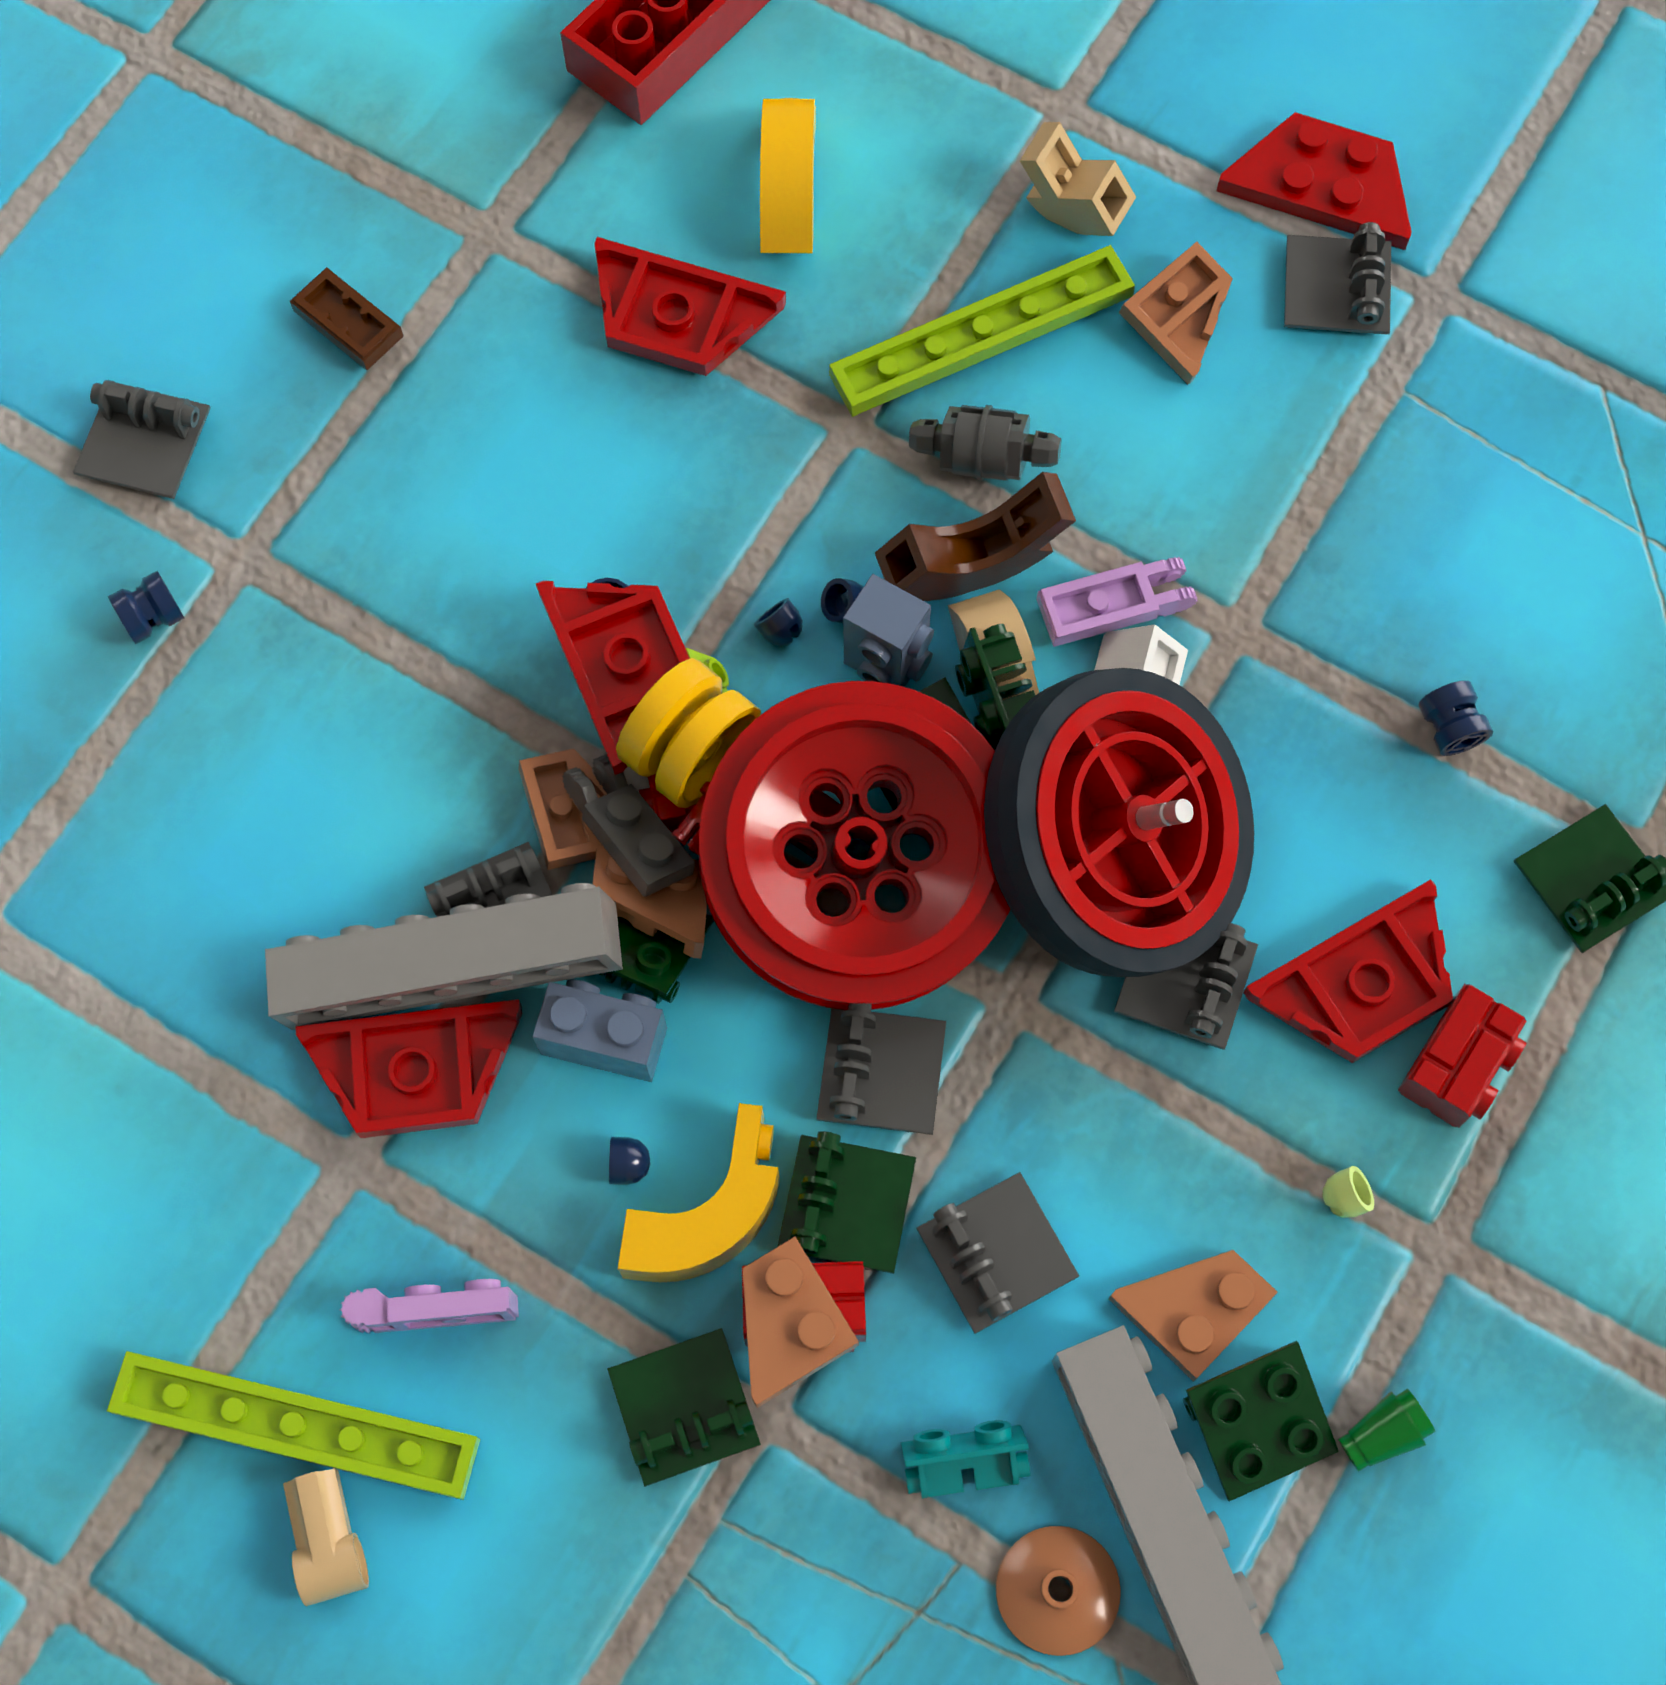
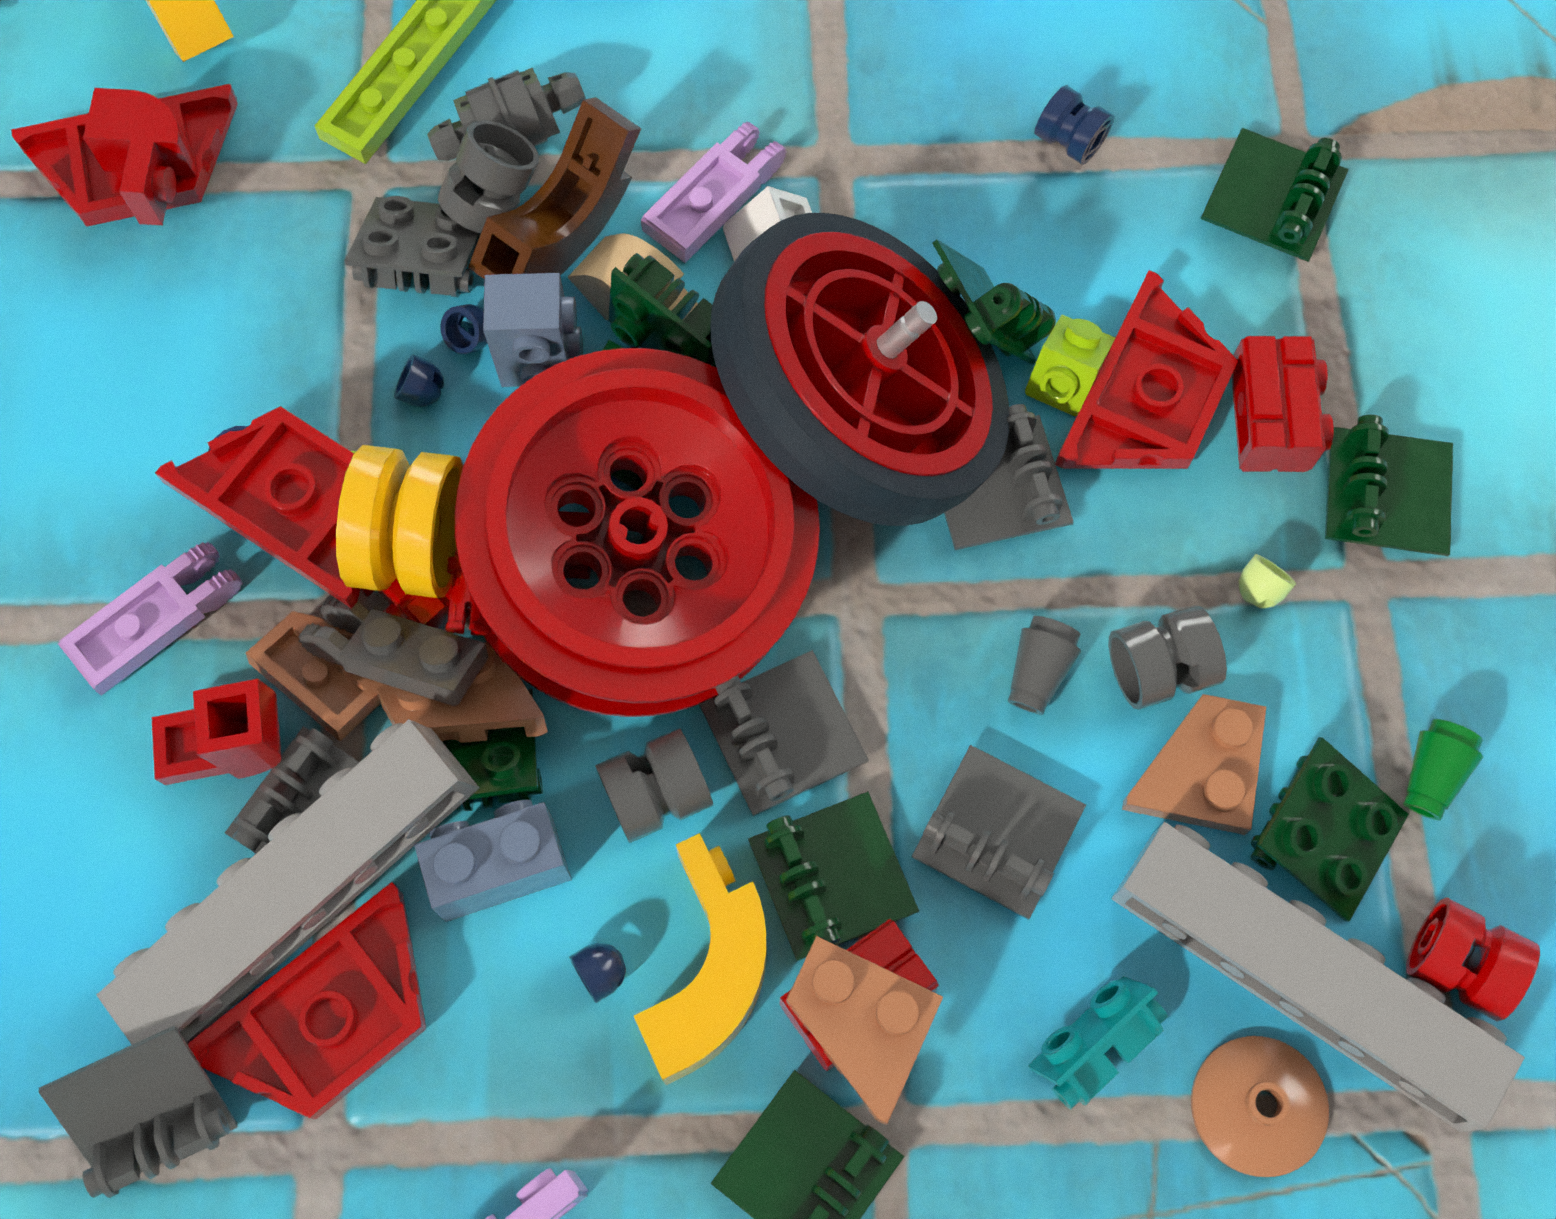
camera: 35 degrees left, 0 degrees up
(245, 1051) = (139, 1111): none -> dark grey hinge
(465, 811) = (226, 732): none -> red brick
(467, 689) = (148, 618): none -> lavender hinge
(689, 306) = (144, 142): none -> red brick
(754, 1049) = (654, 785): none -> dark grey wheel
(851, 506) = (415, 238): none -> dark grey hinge
(936, 486) = (488, 174): none -> dark grey wheel
(1119, 1144) = (1042, 663): none -> dark grey cone
(1221, 1201) = (1176, 654): none -> dark grey wheel
(1268, 834) = (997, 313): none -> dark green hinge
(1310, 915) = (1069, 364): none -> lime bracket
(1314, 1608) = (1494, 971): none -> red wheel
(1511, 1184) = (1389, 489): none -> dark green hinge

